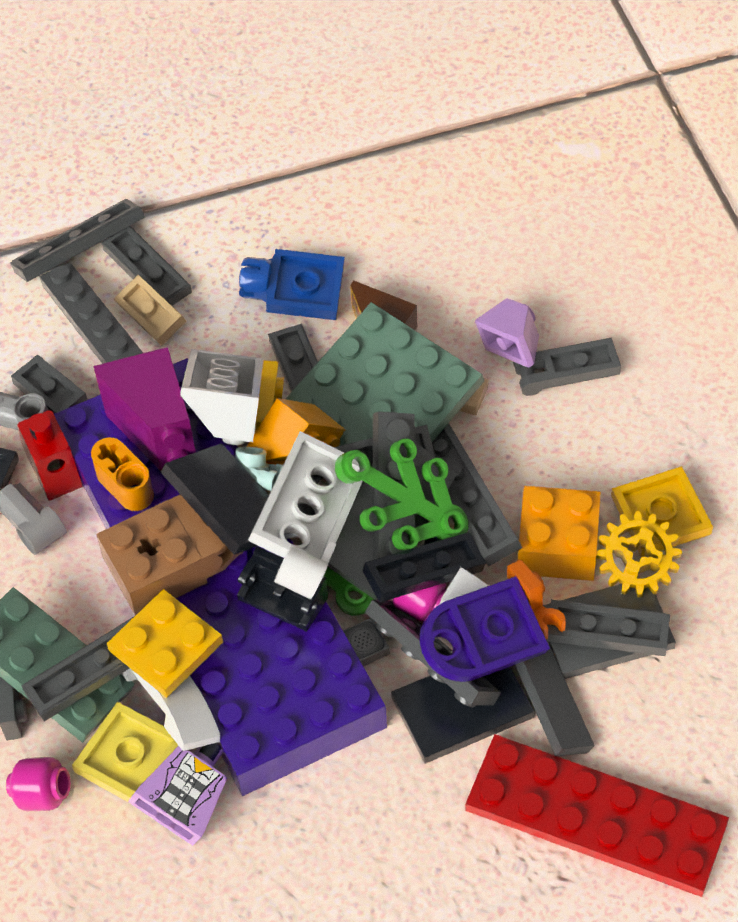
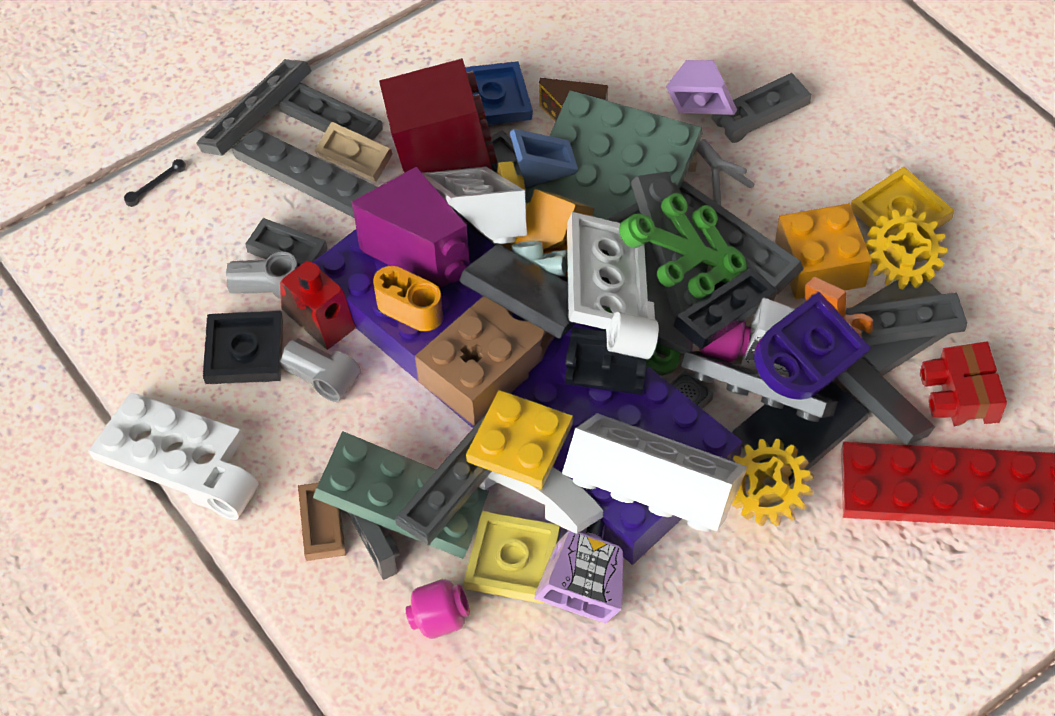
camera: 20 degrees left, 0 degrees up
(225, 302) = (438, 119): none -> dark red container
(278, 711) = (653, 472): none -> white slope
(310, 364) = (542, 157): none -> medium blue slope
(400, 754) = (778, 469): none -> yellow gear
(494, 415) = (718, 164): none -> light grey plant
(647, 711) = (968, 384): none -> red hips

